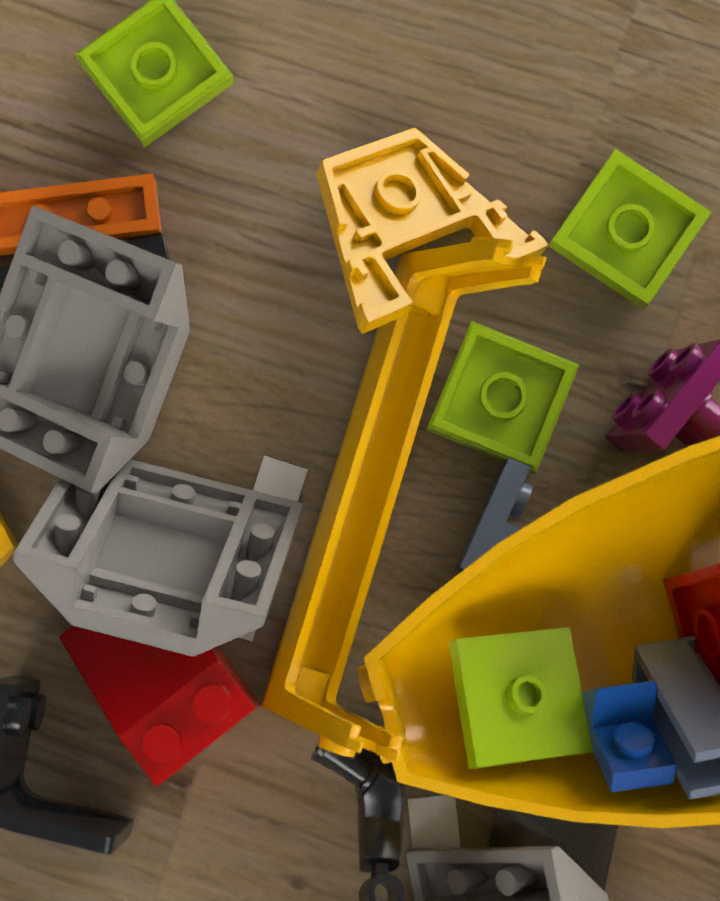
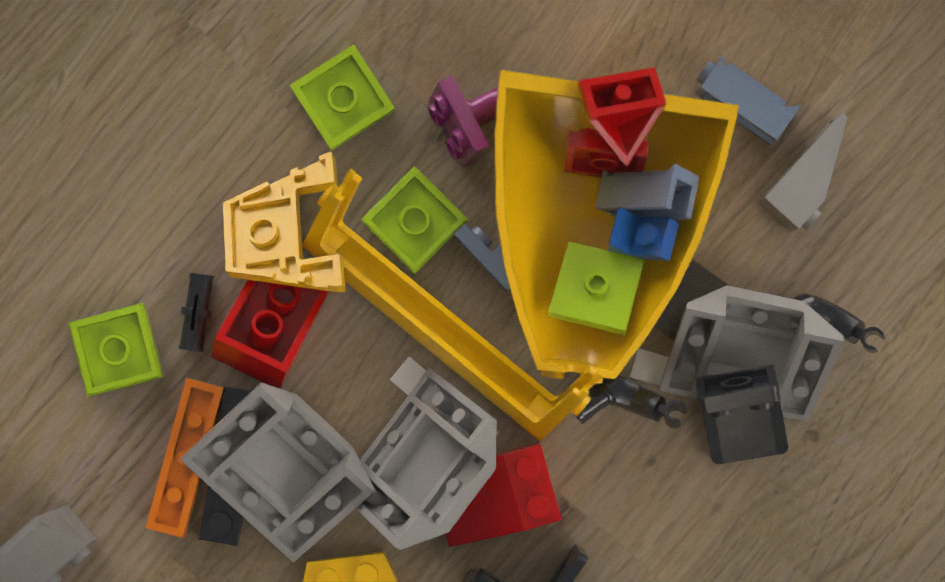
camera: 70 degrees left, 5 degrees up
(249, 153) = (196, 312): none -> black pin
(265, 255) = (267, 329): none -> red slope

